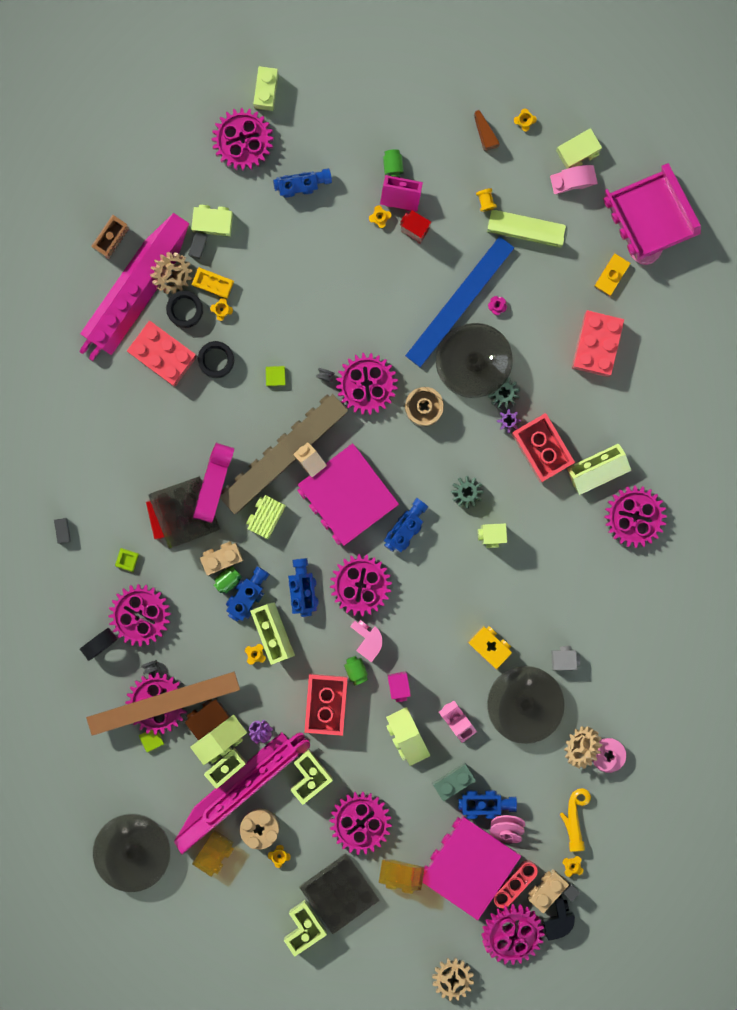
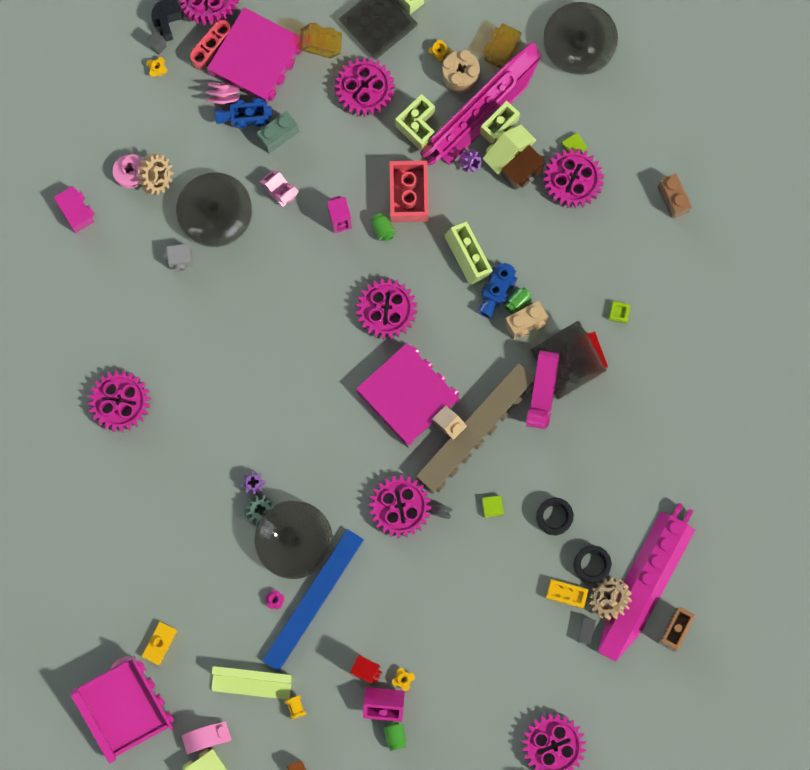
camera: 175 degrees right, 10 degrees down
(56, 674) = (674, 196): none -> medium nougat brick
(62, 530) = (686, 333): dark grey piece -> none
(98, 644) = (637, 226): black tyre -> none
(148, 599) = (606, 244): dark pink gear -> none
(149, 667) = (584, 211): dark grey bush -> none
(162, 353) = (610, 516): coral brick -> none
(163, 703) = (567, 175): medium nougat tile -> none
(212, 220) = (575, 657): yellowish green brick -> none
(221, 304) = (555, 563): yellow plate -> none
(251, 650) = (484, 229): yellow plate -> none
(266, 516) = (486, 365): yellowish green brick -> none
(297, 183) = (490, 702): blue brick -> none
(302, 589) = (443, 298): blue brick -> none
(373, 640) = (369, 257): bright pink brick -> none
(407, 737) = (327, 168): yellowish green brick -> none
(408, 529) = (347, 364): blue brick -> none
(435, 406) = (339, 477): tan brick -> none
(464, 486) = (281, 410): sand green gear -> none
(492, 535) = (259, 367): yellowish green brick -> none
(494, 657) = (248, 252): yellow brick -> none
(543, 447) = (216, 458): coral brick -> none
(547, 891) = (179, 41): tan brick -> none
(572, 822) = (160, 106): yellow plant -> none
(598, 343) = (169, 569): coral brick -> none
(599, 469) = (158, 443): yellowish green brick -> none
(667, 720) = (74, 209): none -> dark pink brick

